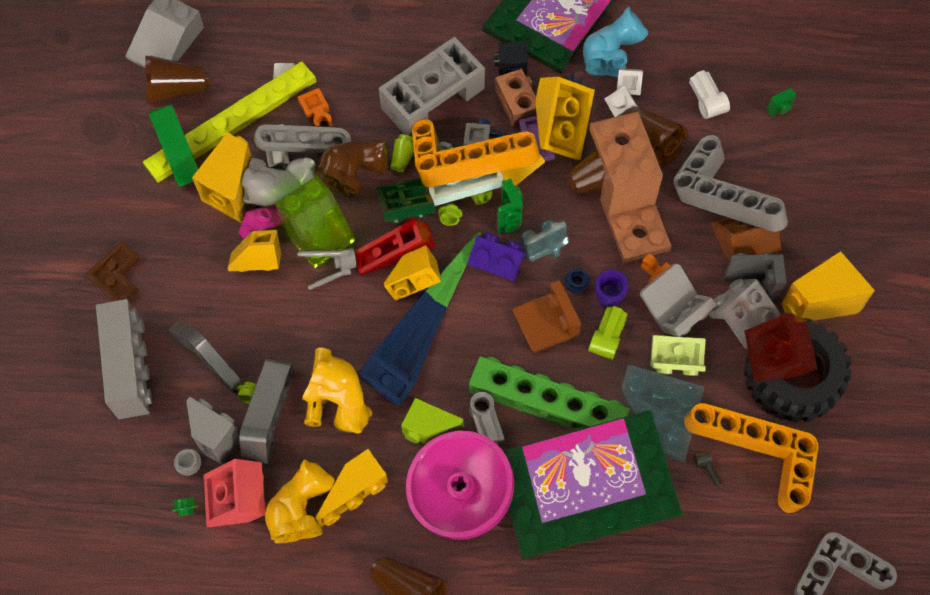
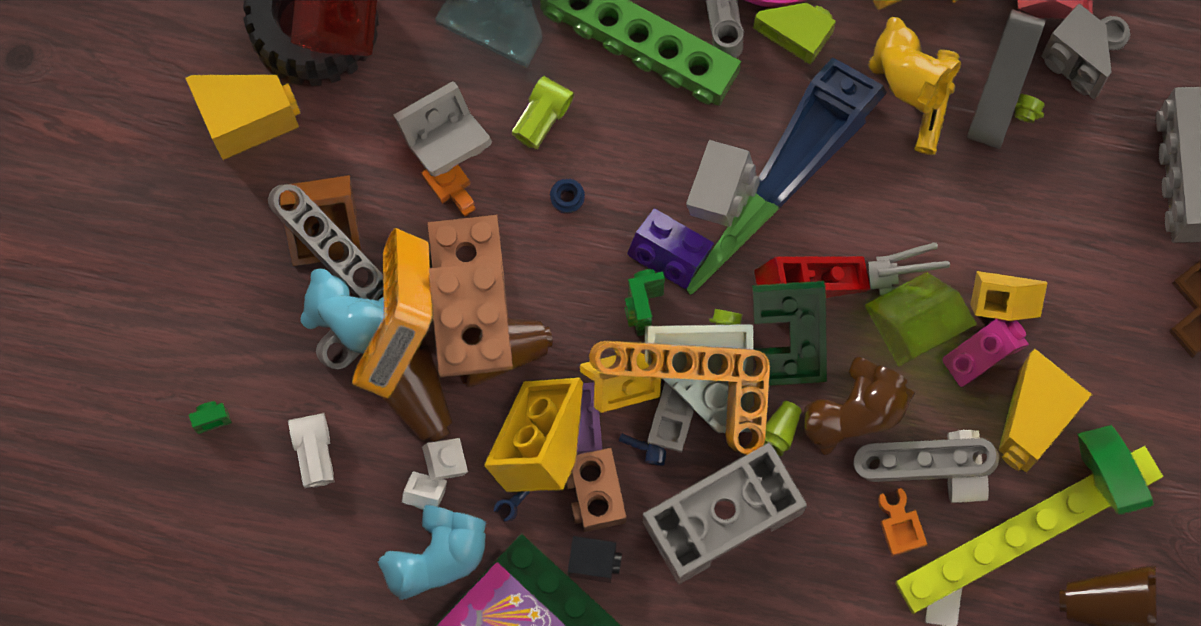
camera: 170 degrees left, 10 degrees up
(198, 344) = (1096, 159): dark grey beam -> none
(267, 185) = (978, 384): light grey animal -> none
(413, 273) = (789, 233): yellow slope -> none
(467, 293) = (722, 184): none -> light grey brick
(546, 242) = (614, 252): clear light blue hips -> none
(548, 319) = (621, 143): dark orange bracket -> none
(611, 288) = (526, 163): dark purple piece -> none
(672, 156) = (405, 314): none -> light orange beam
(678, 354) = (461, 61): yellowish green bracket -> none
(704, 147) = (350, 318): none -> medium azure animal
(744, 307) = (354, 114): light grey bracket -> none
(764, 267) = (316, 157): dark grey bracket -> none

